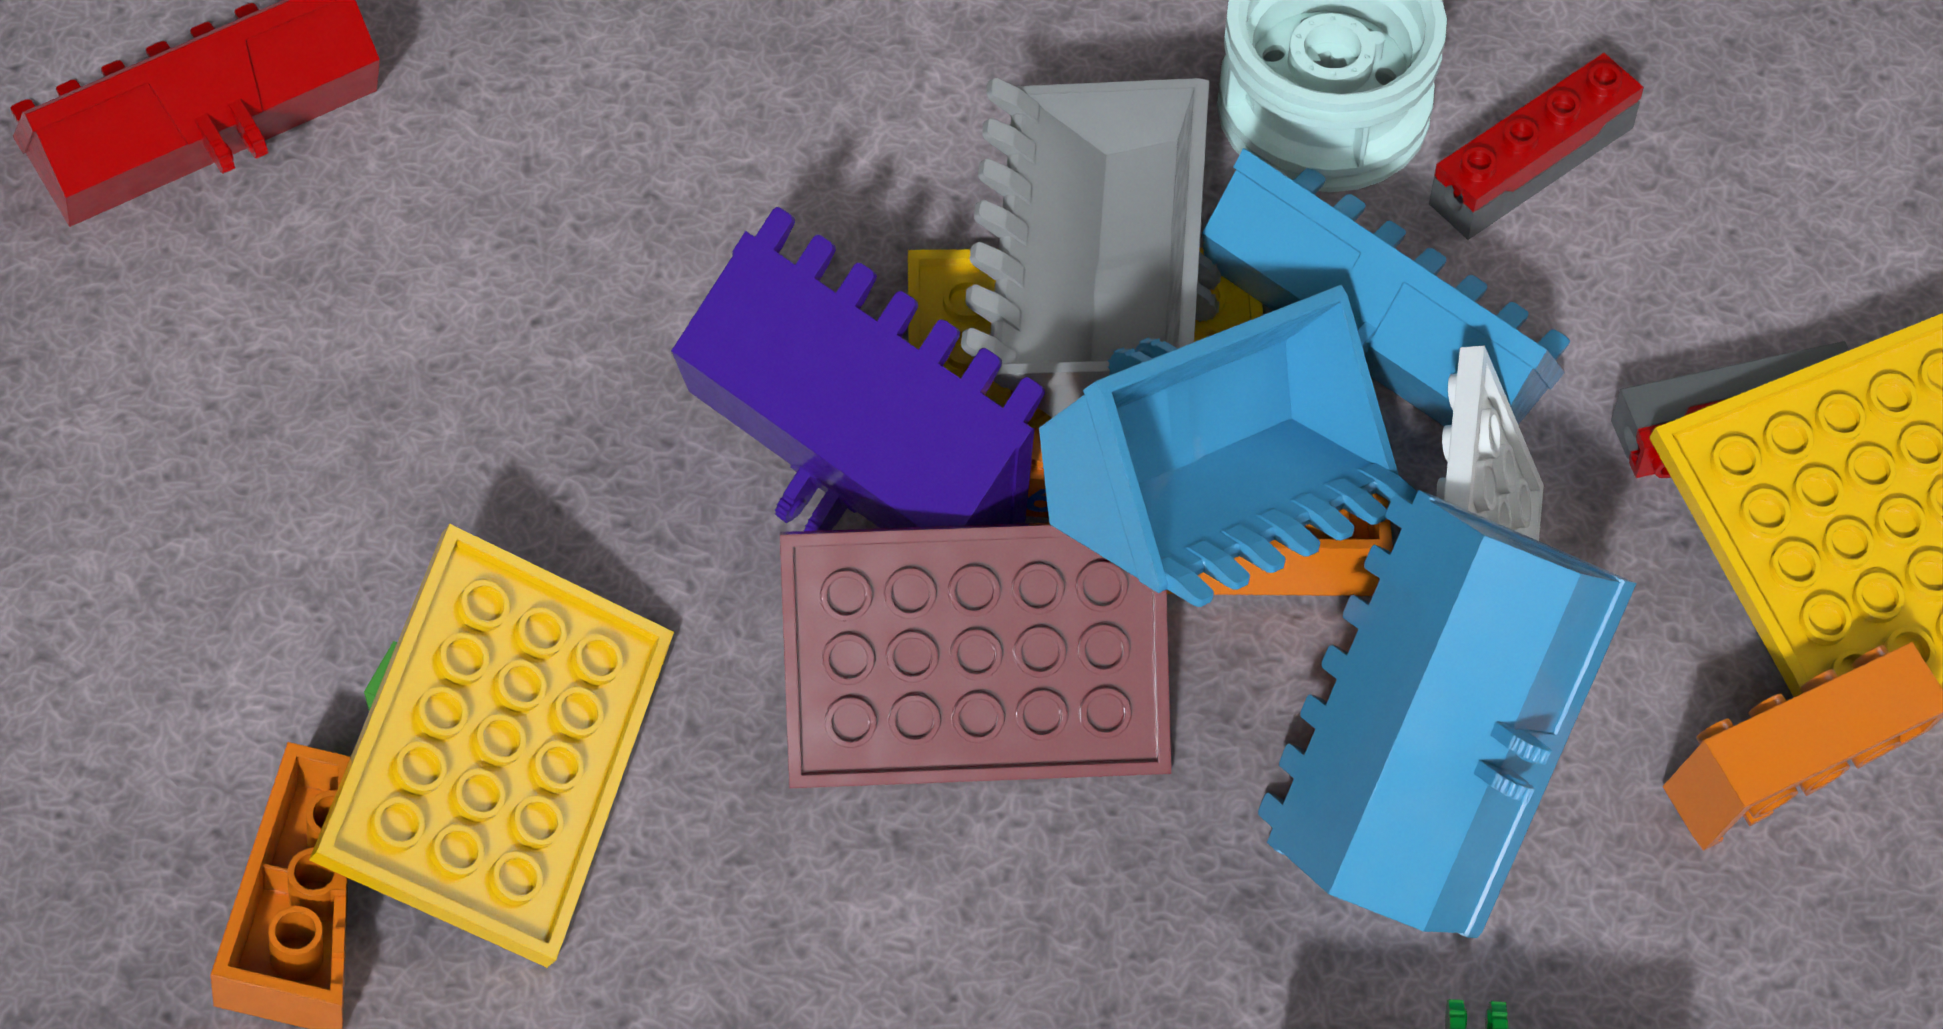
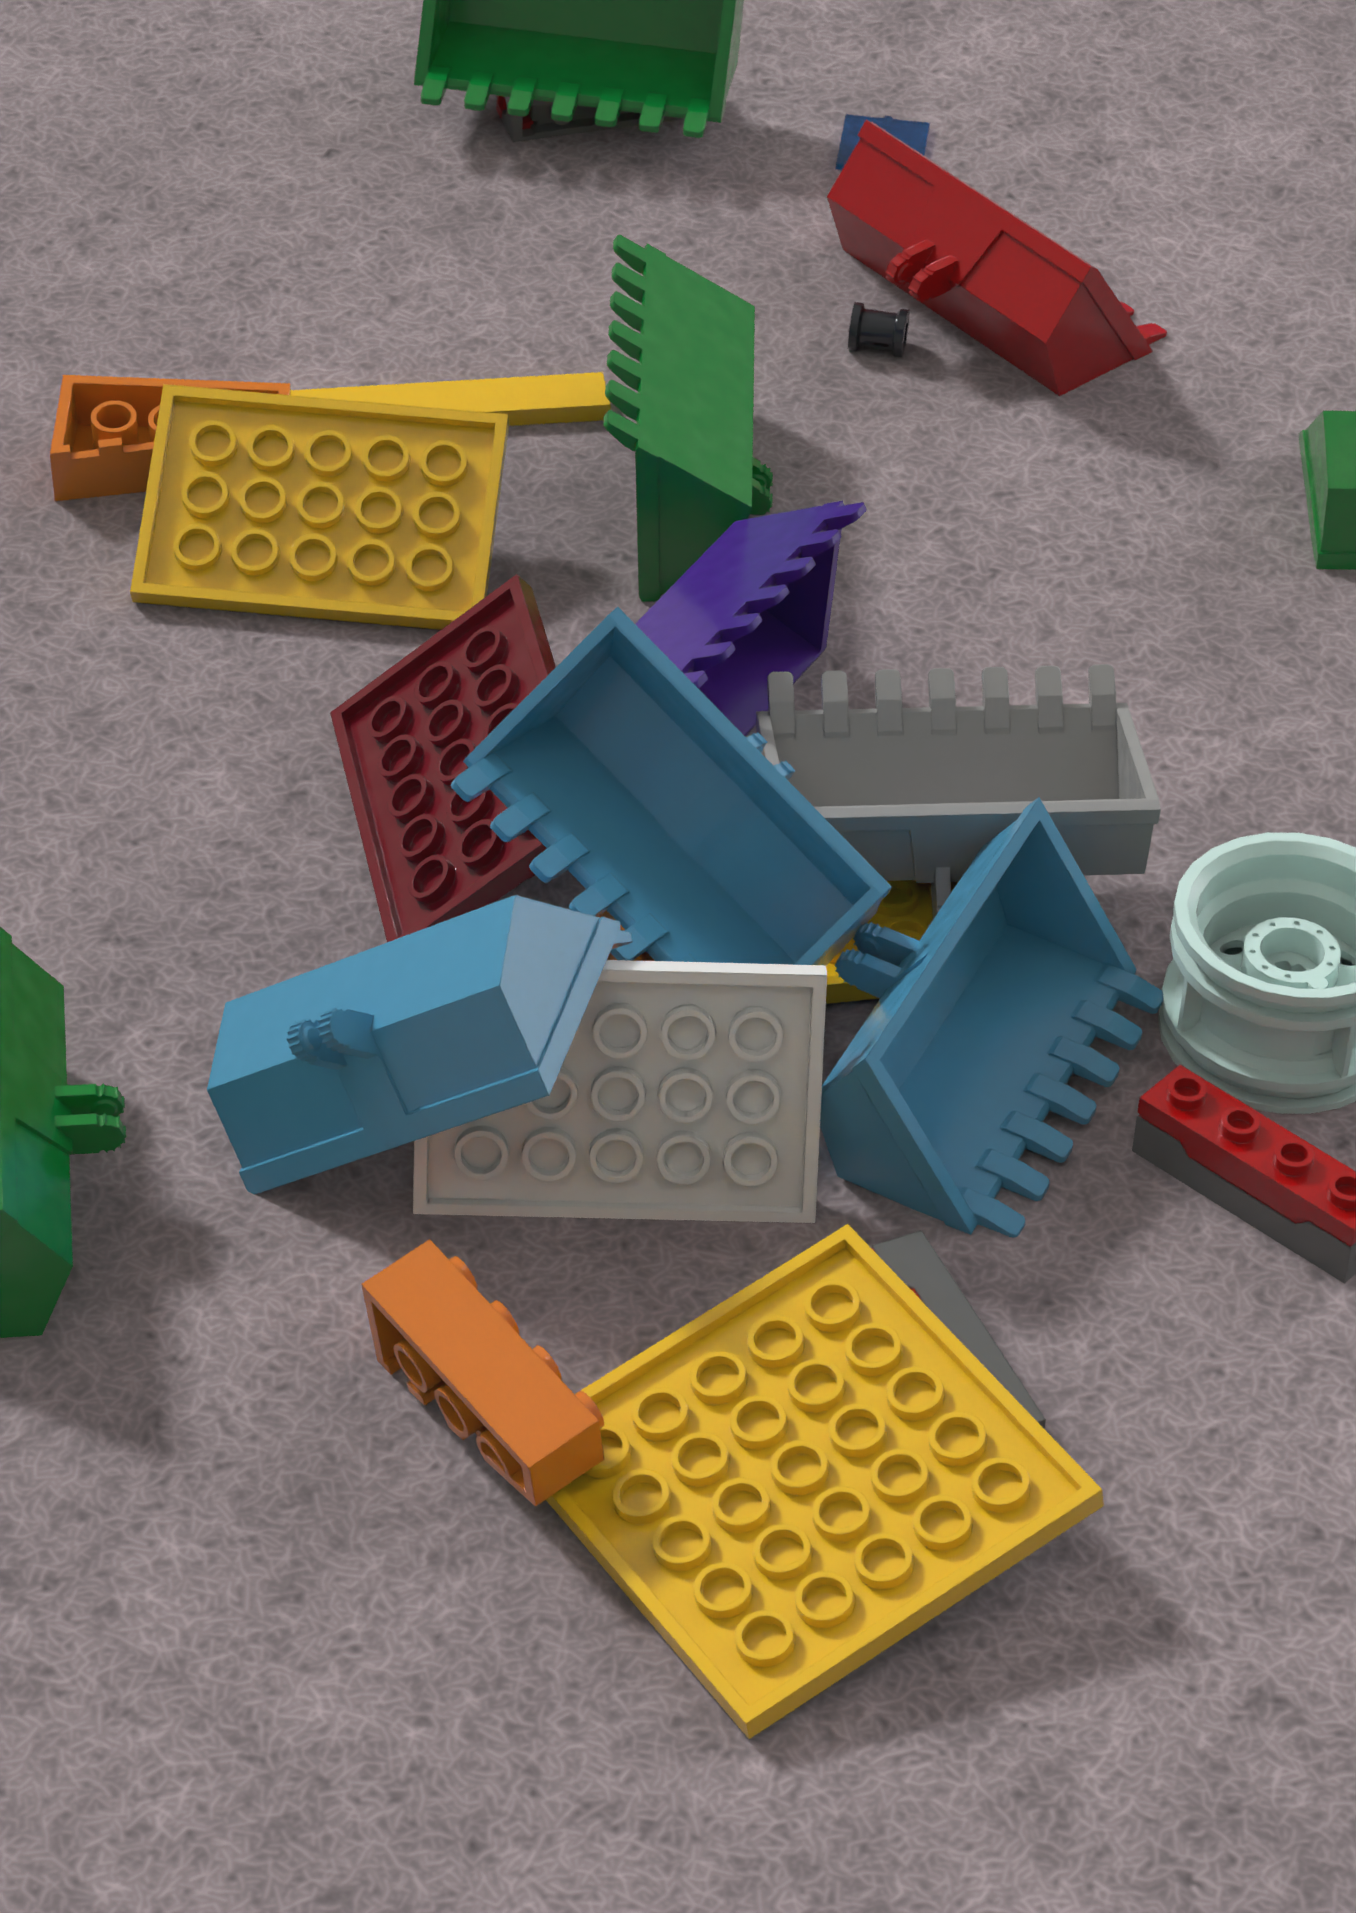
camera: 80 degrees right, 15 degrees down
(250, 212) = (878, 329): none -> black bush
(267, 632) = (524, 399): none -> yellow tile
(459, 383) = (688, 410): none -> green piece

